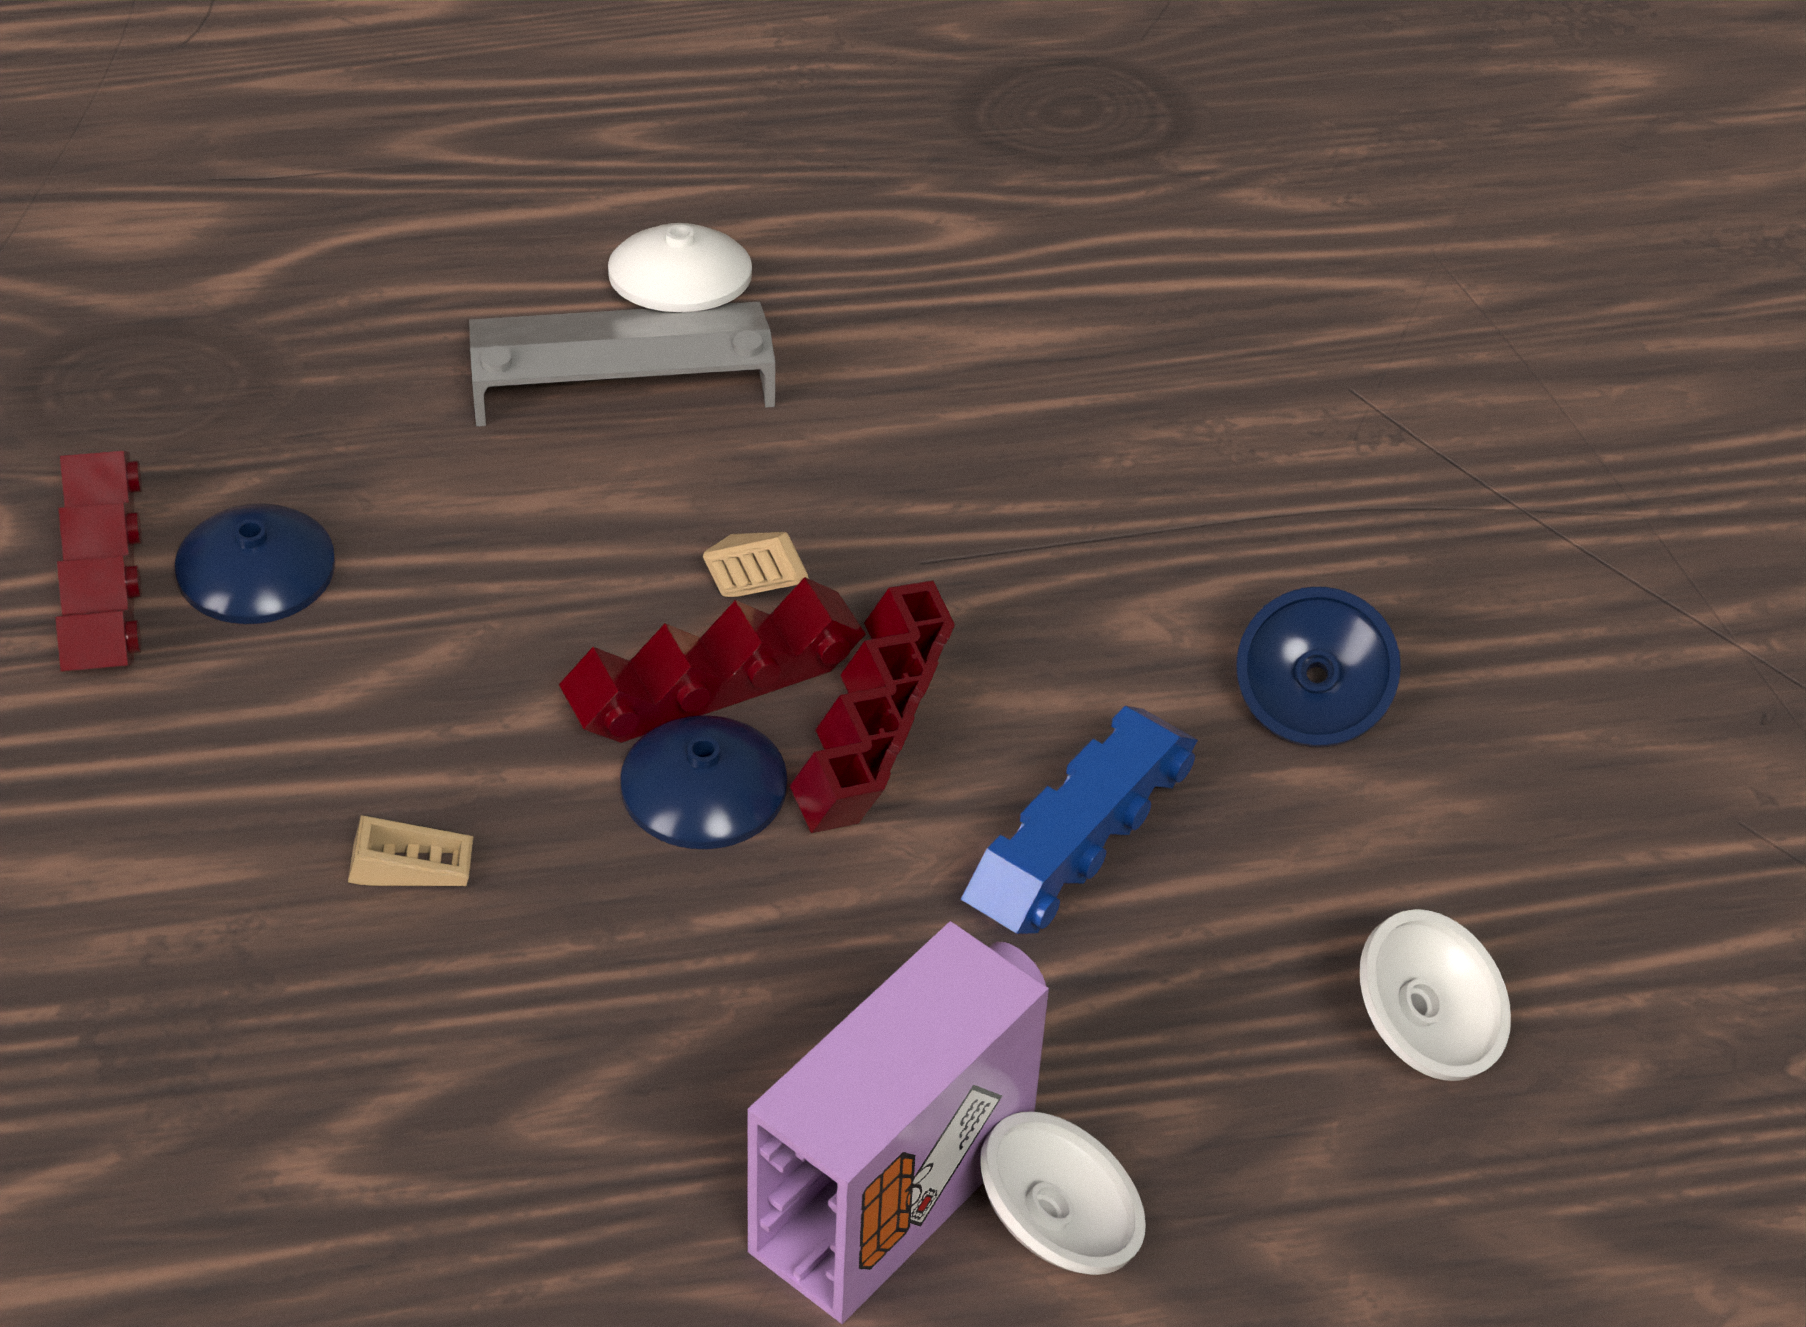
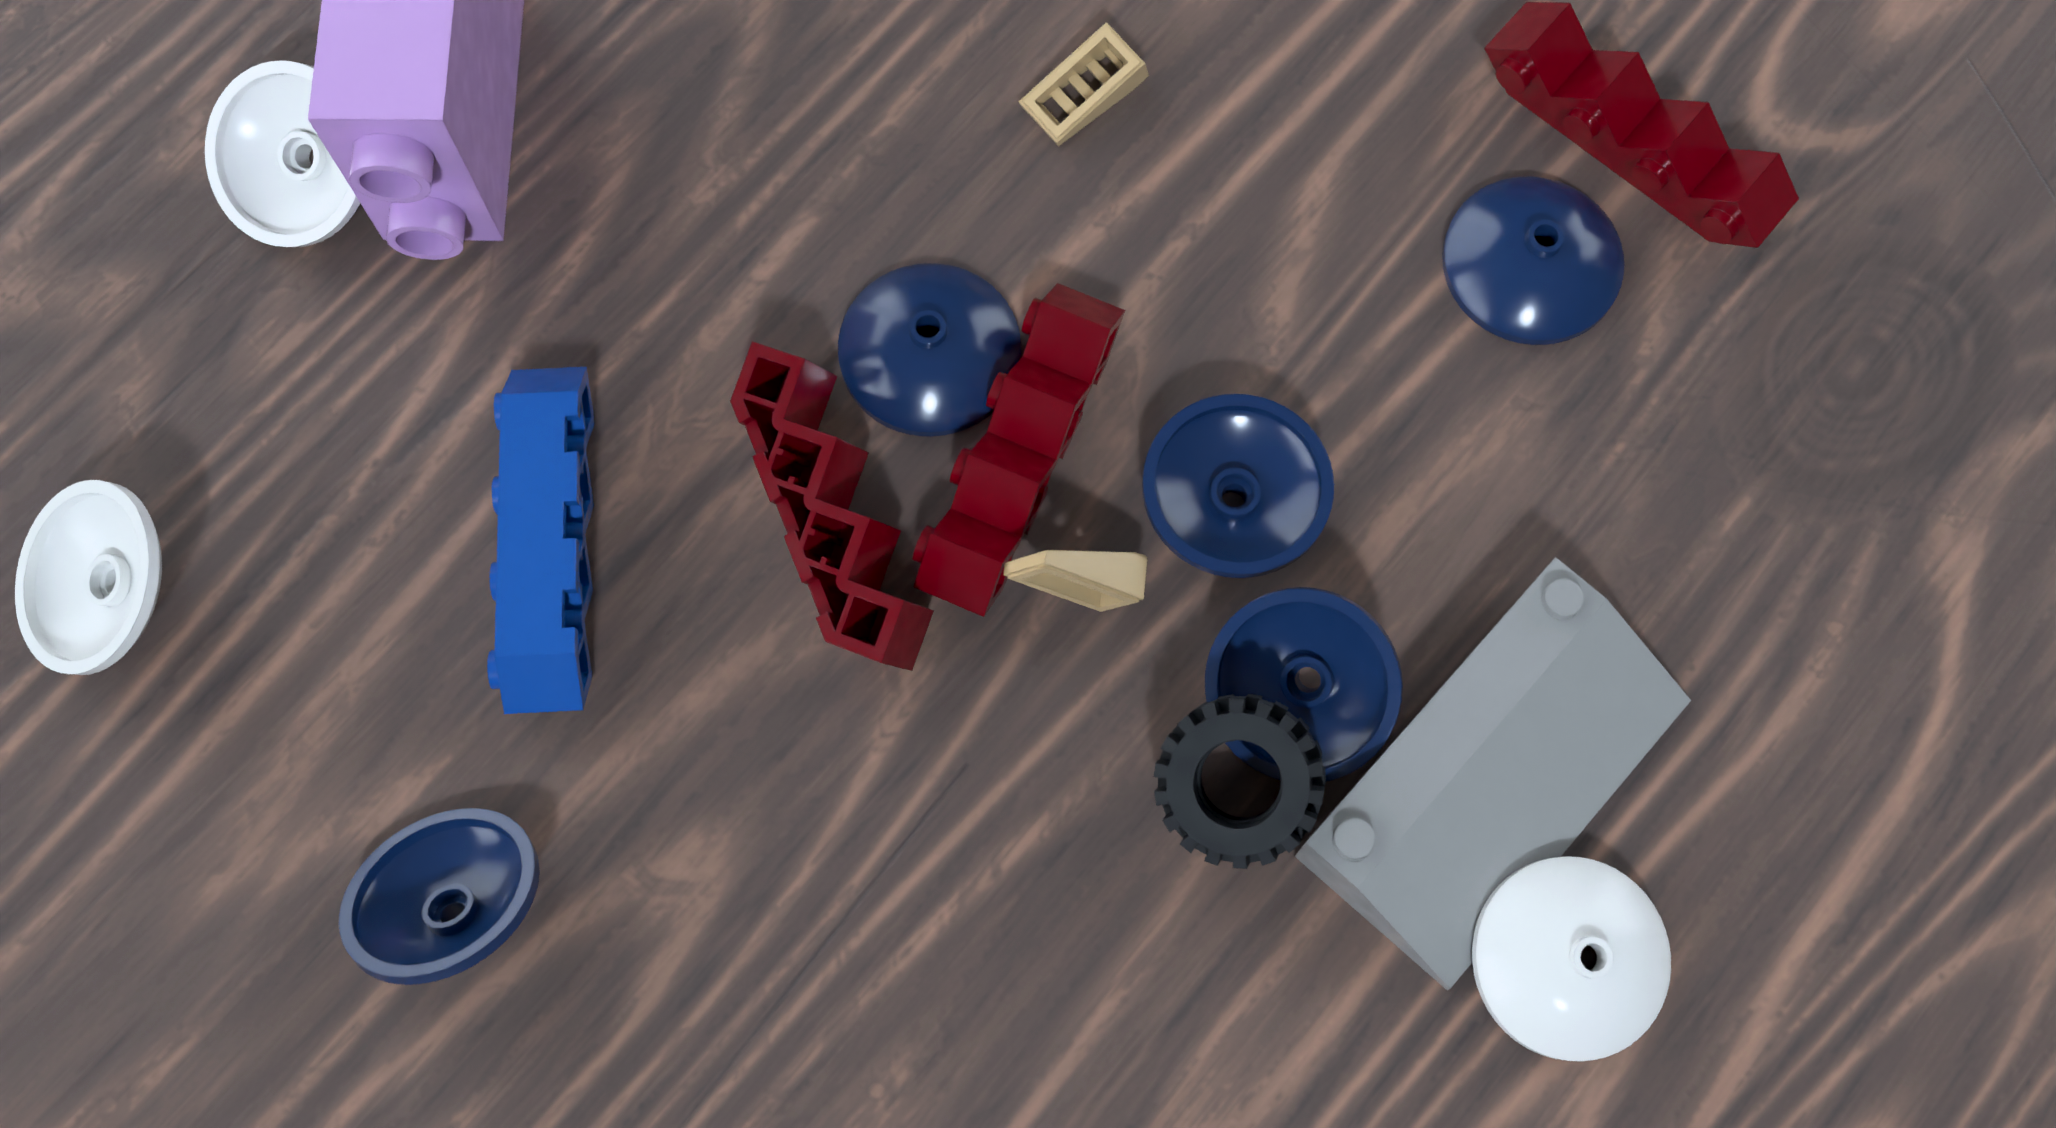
camera: 140 degrees right, 25 degrees up
(606, 544) = (1245, 449): none -> dark blue dish
(687, 434) = (1317, 629): none -> dark blue dish
(776, 415) = (1209, 828): none -> black tyre

